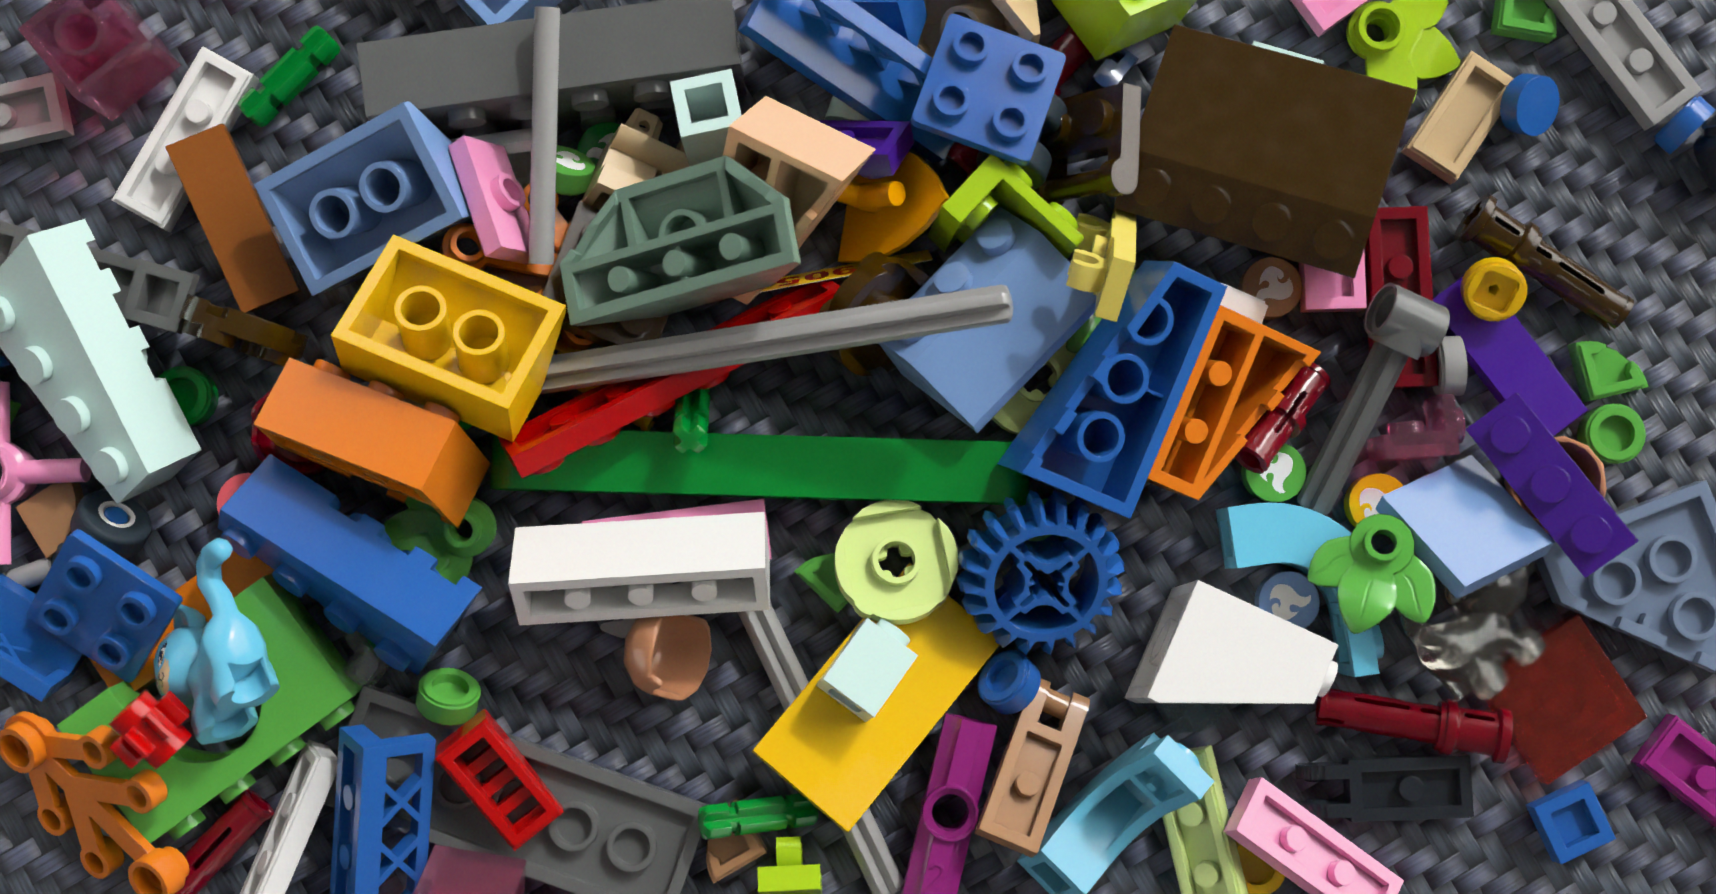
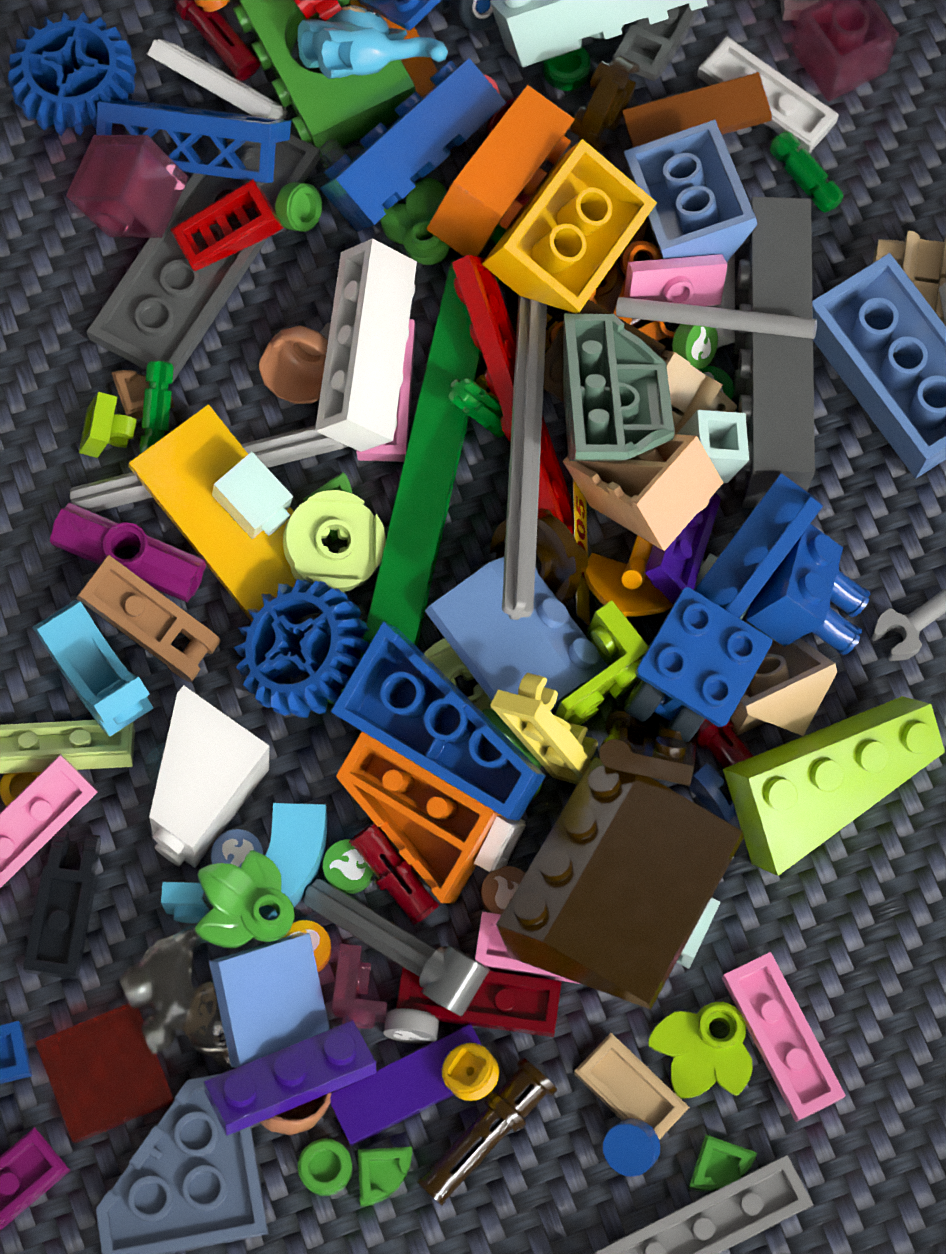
camera: 100 degrees right, 15 degrees down
(1009, 682) = (219, 616): blue tile -> none
(1442, 724) = (105, 956): dark red pin -> none

